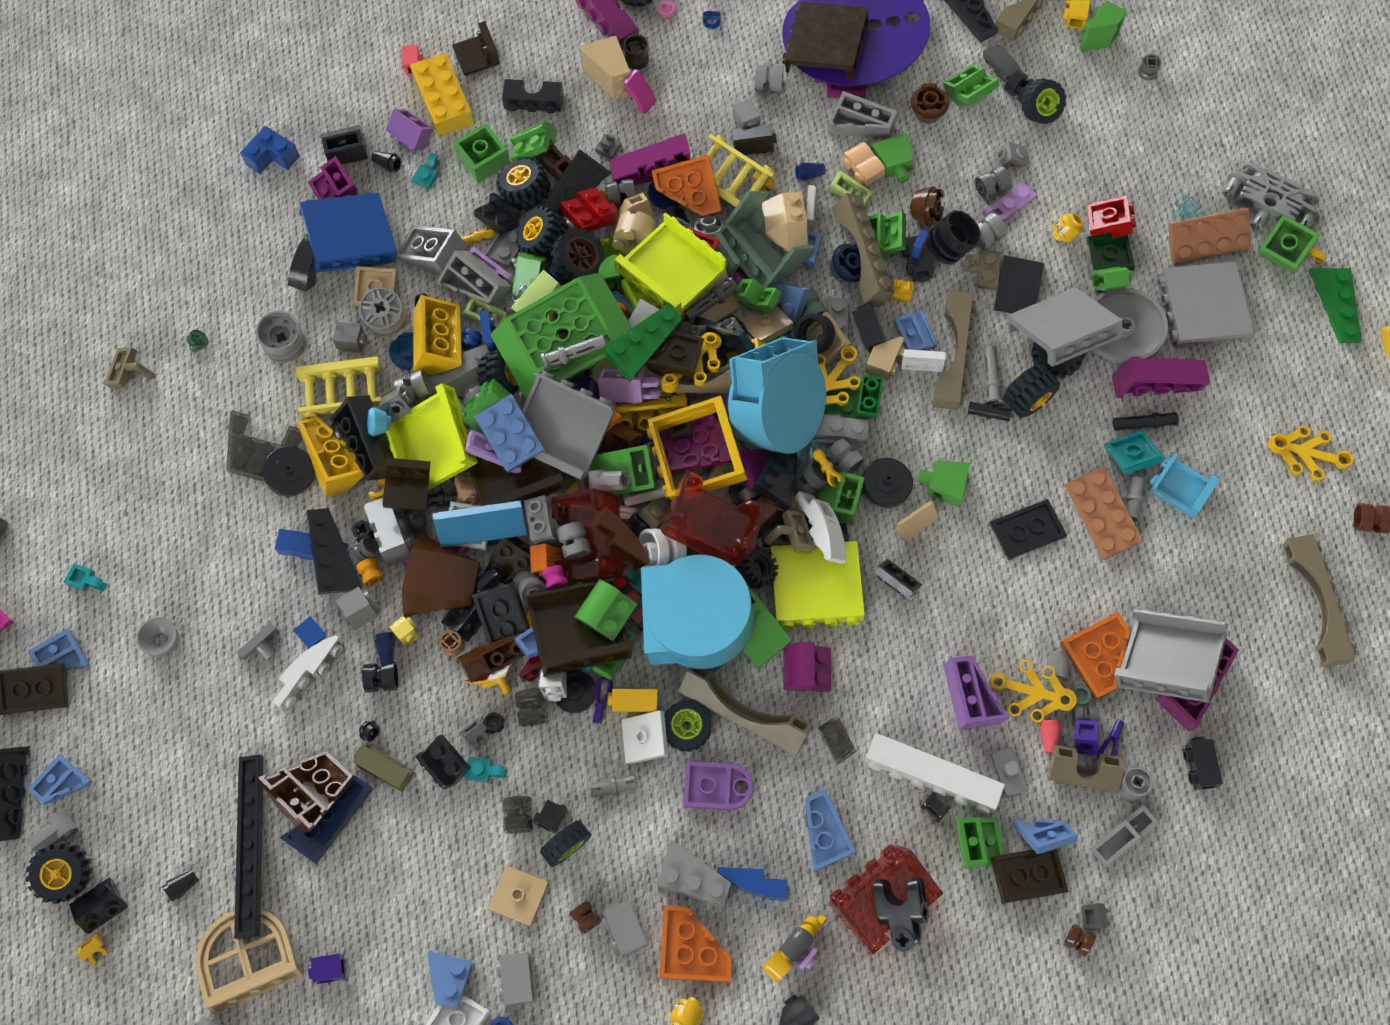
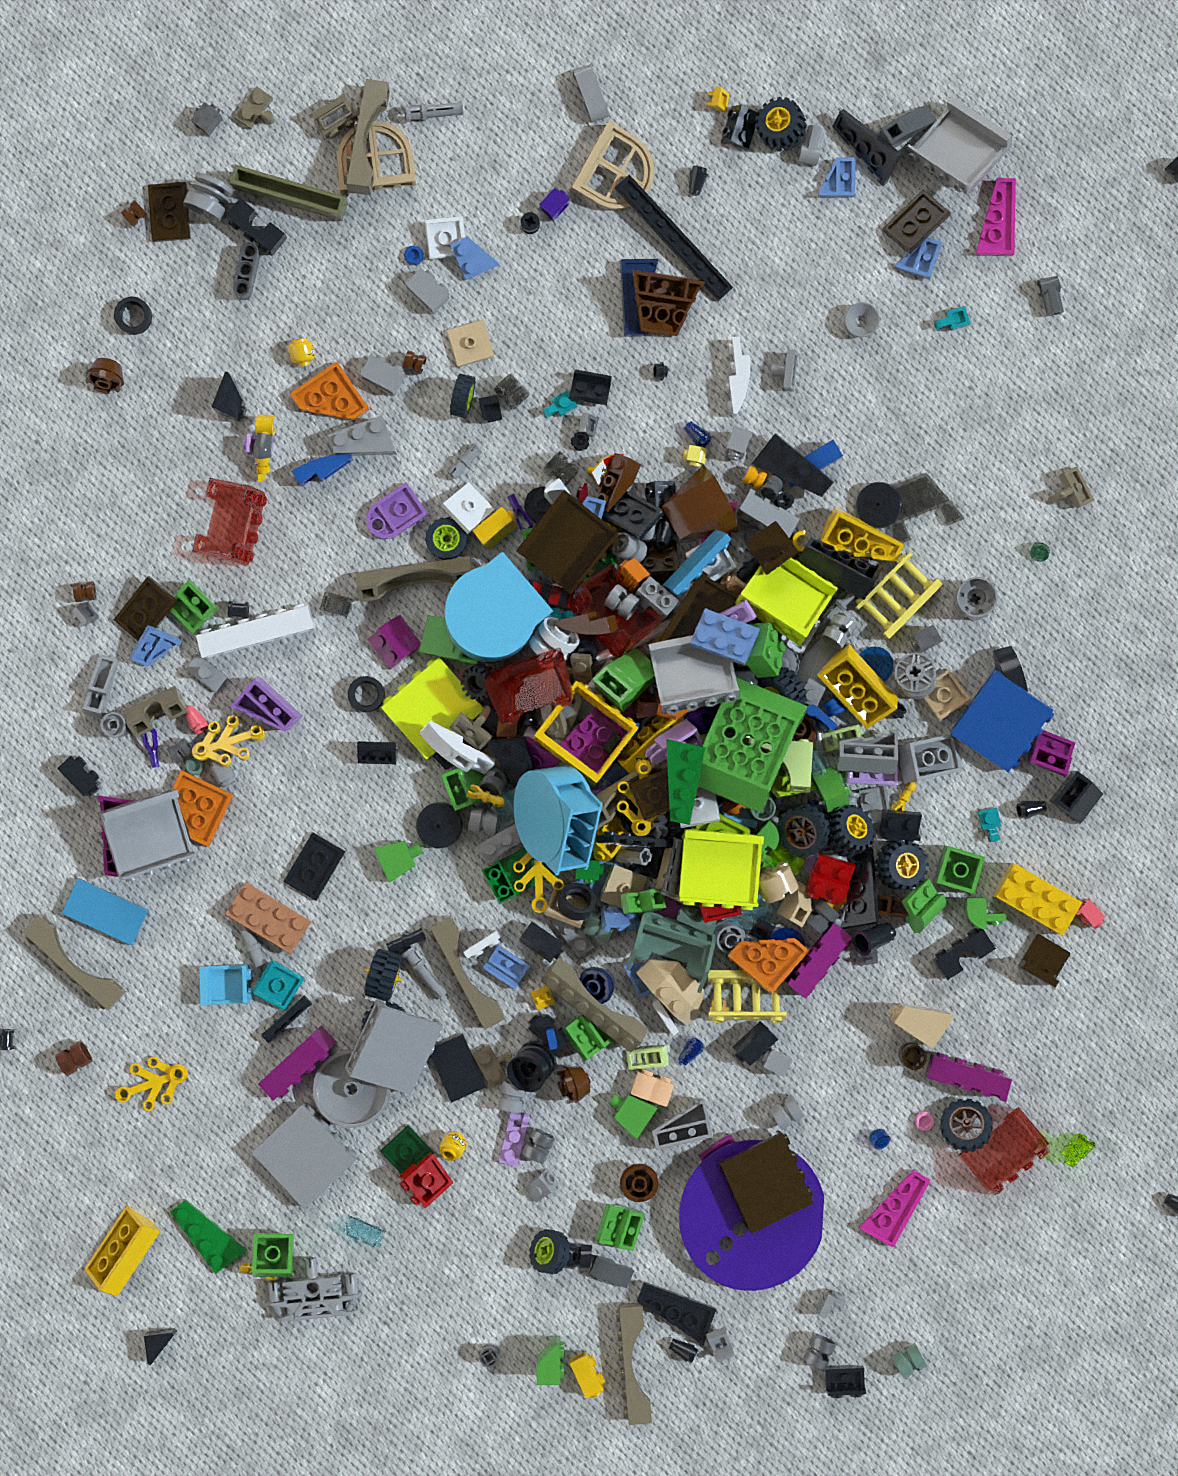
camera: 140 degrees right, 20 degrees up
(269, 147) = (1133, 747): blue brick -> none
(309, 632) = (757, 402): blue panel -> none
(369, 972) = (530, 227): none -> black wheel
(378, 421) = (834, 579): medium azure cone -> none
(383, 767) = (629, 354): olive window -> none
(388, 677) = (682, 411): black wheel -> none
(396, 403) = (835, 605): flat silver brick -> none
(409, 129) = (1032, 845): medium lavender brick -> none
(454, 647) = (651, 473): medium nougat wheel -> none
(494, 114) = (977, 915): none -> bright green brick
(554, 577) = (611, 563): dark pink wheel -> none
(562, 354) = (731, 722): light grey pin -> none
(597, 147) = (872, 938): none -> black plant
(606, 610) = (557, 565): bright green brick -> none
(608, 480) = (631, 659): light grey piece -> none
(640, 90) = (878, 1019): dark pink slope -> none
(826, 832) = (299, 538): medium blue wing -> none
(871, 625) = (368, 708): none -> black tyre
(884, 357) = (513, 925): tan slope -> none
(900, 915) = (207, 518): black piece -> none
(917, 521) = (397, 811): tan slope -> none
(1086, 737) = (169, 734): dark purple brick -> none
(1111, 278) = (388, 1121): bright green brick -> none
(1209, 235) = (339, 1220): nougat plate -> none
(1258, 625) = (105, 911): none -> dark azure piece

